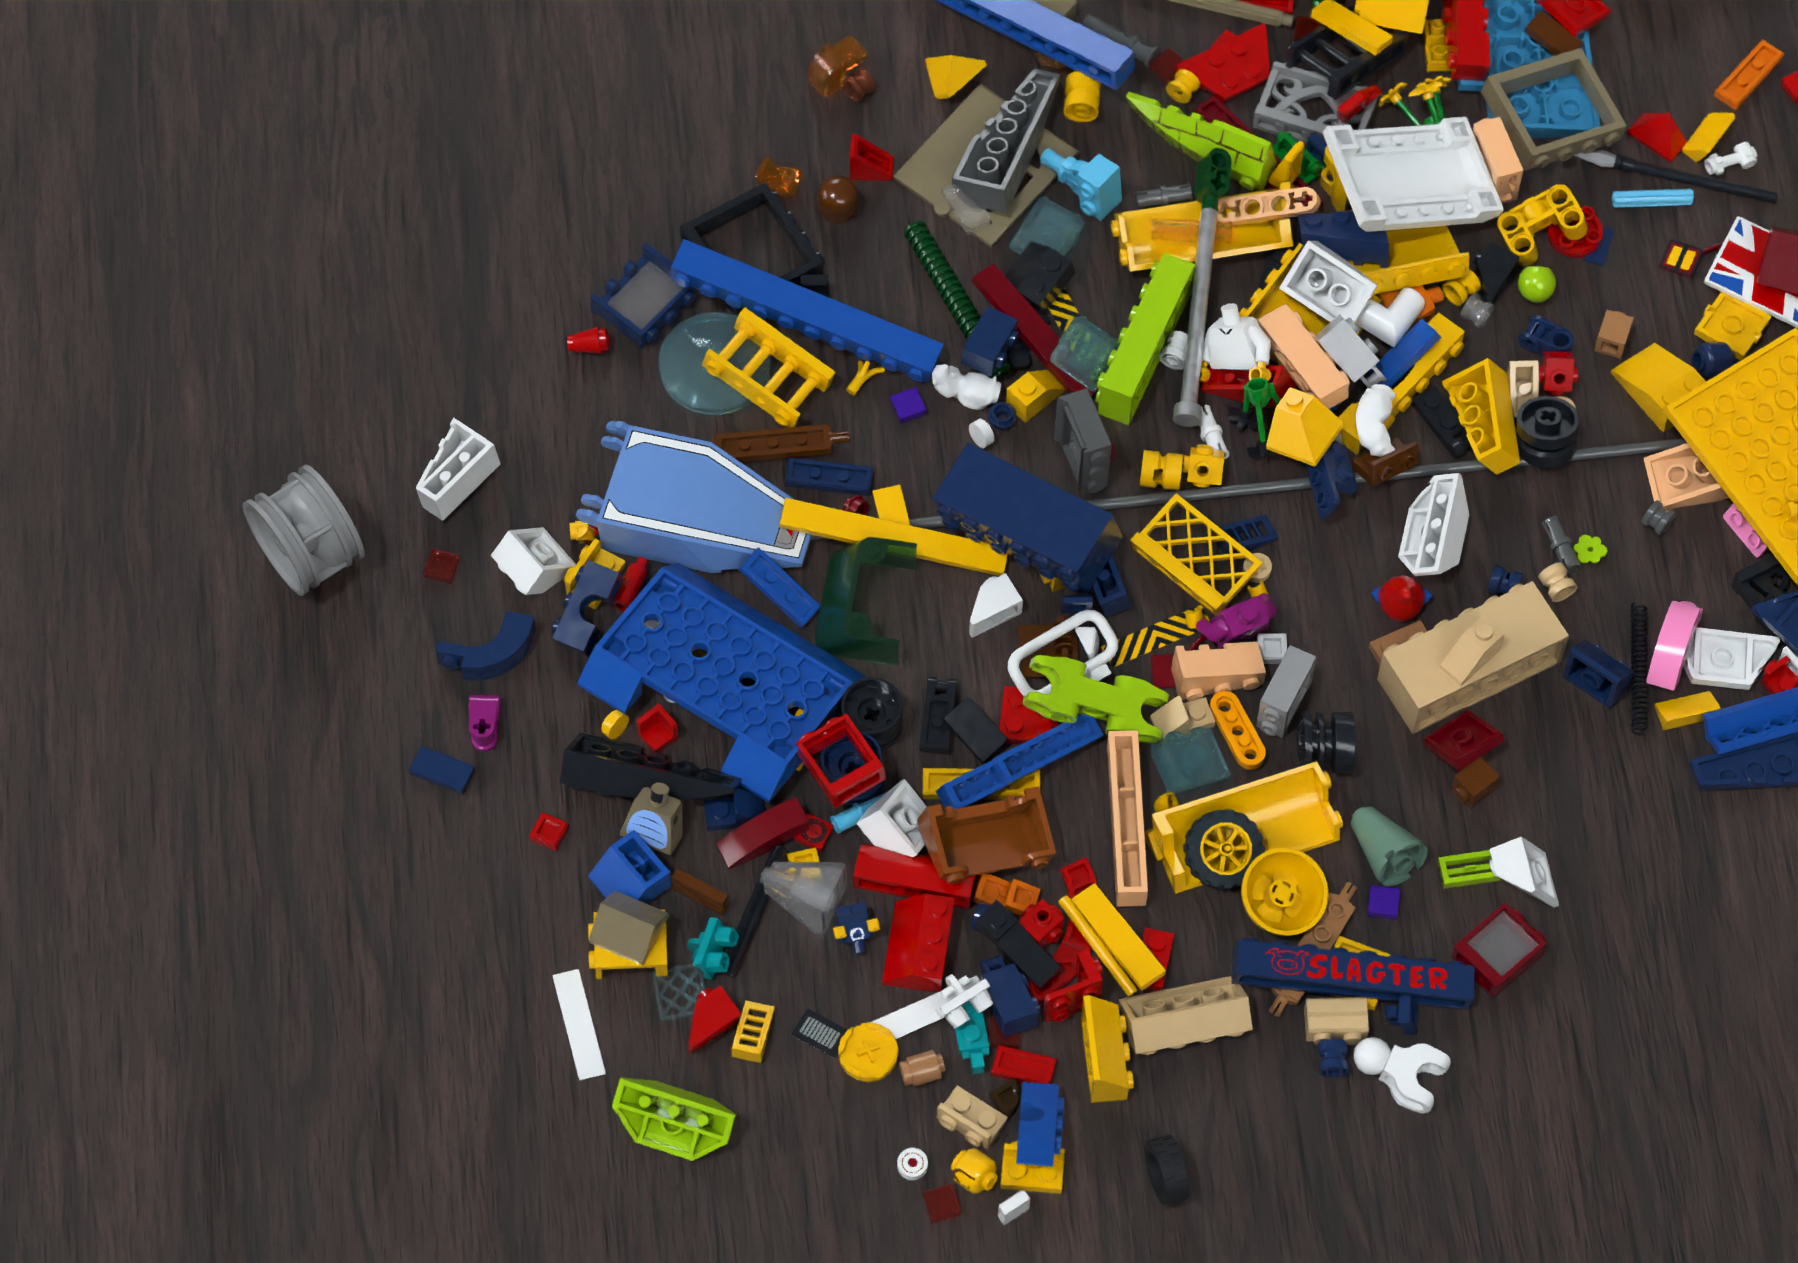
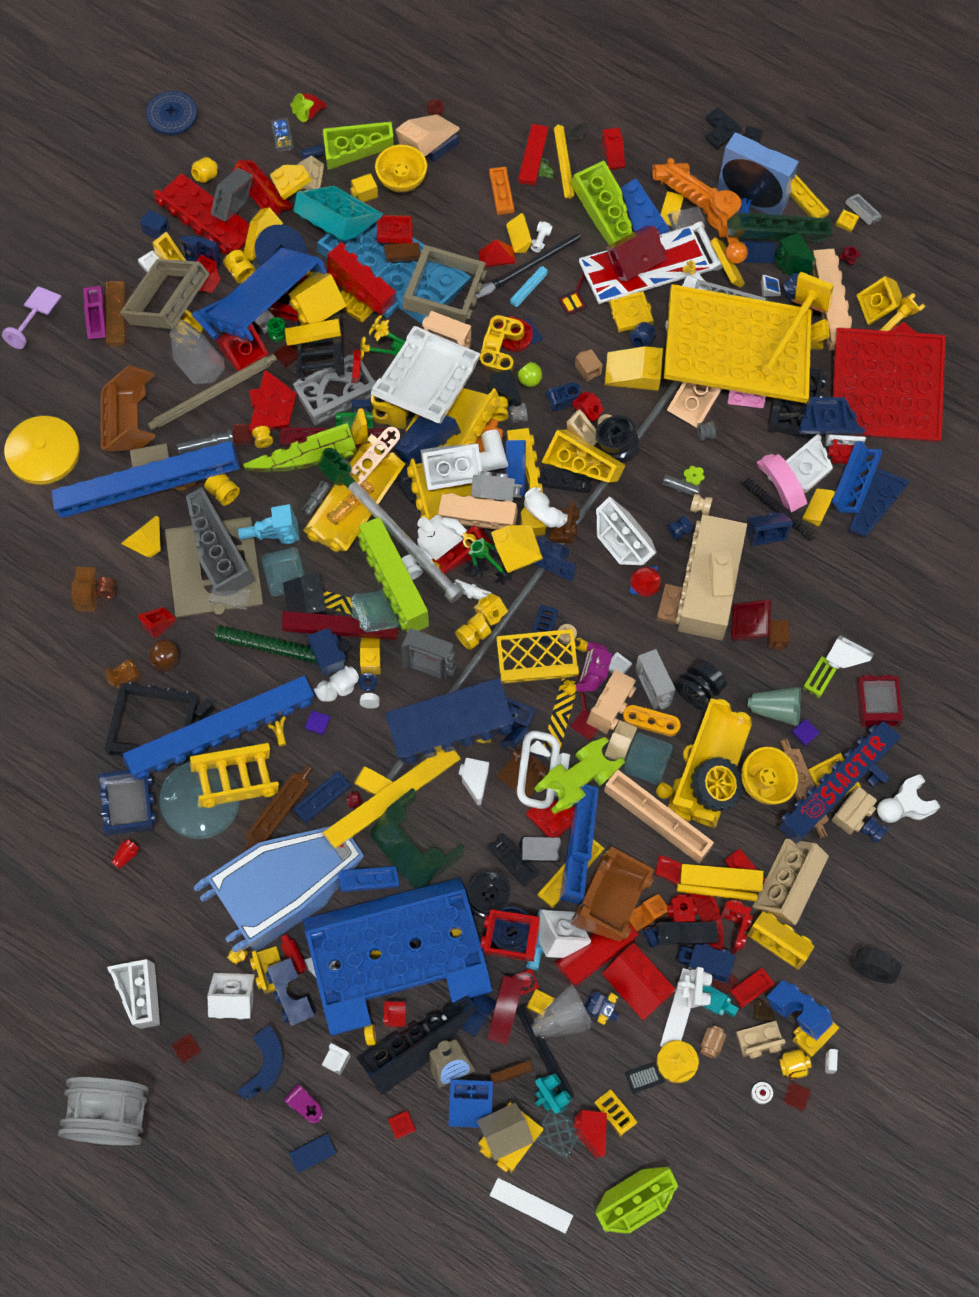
camera: 50 degrees left, 5 degrees up
(559, 714) = (336, 1059): none -> white panel

